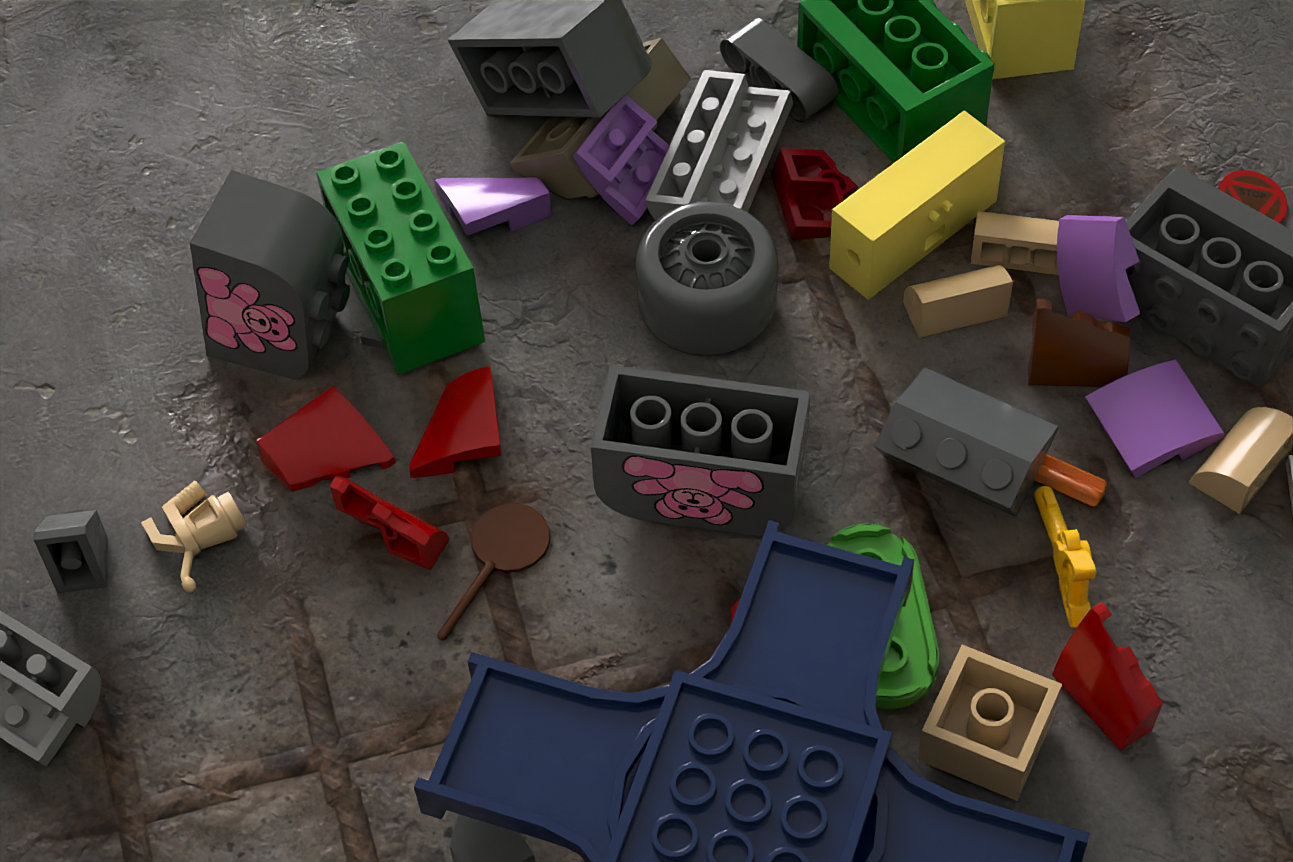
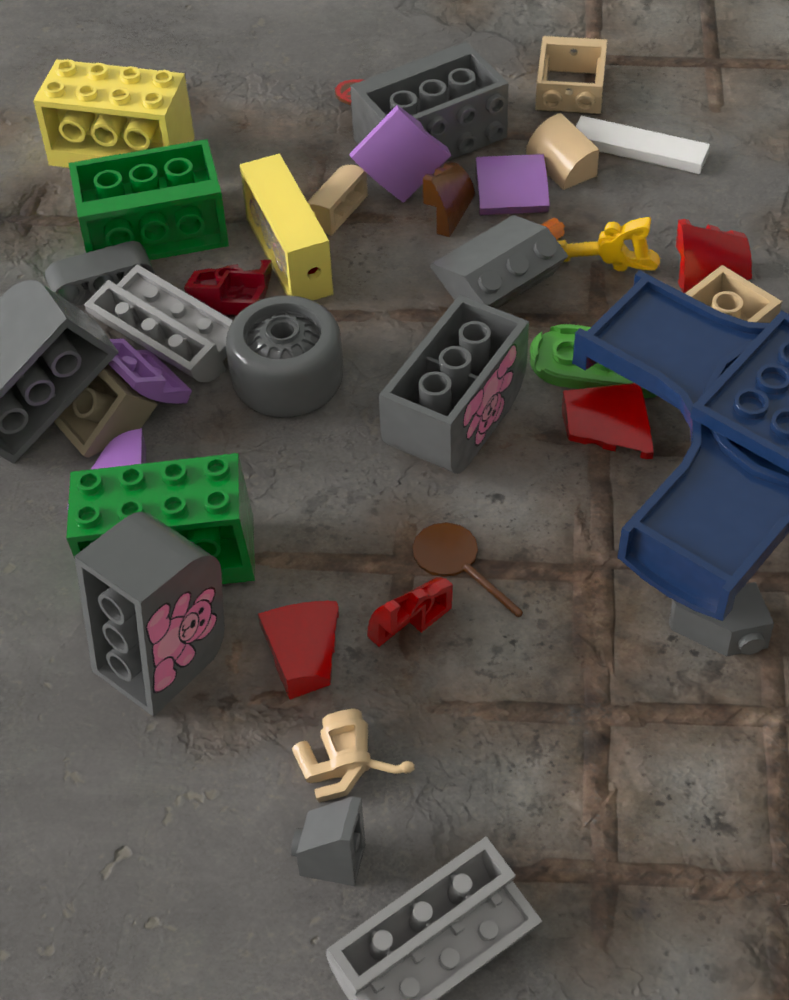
camera: 70 degrees left, 5 degrees down
(460, 427) = (330, 546): red slope -> none
(959, 300) = (367, 241): tan brick -> none

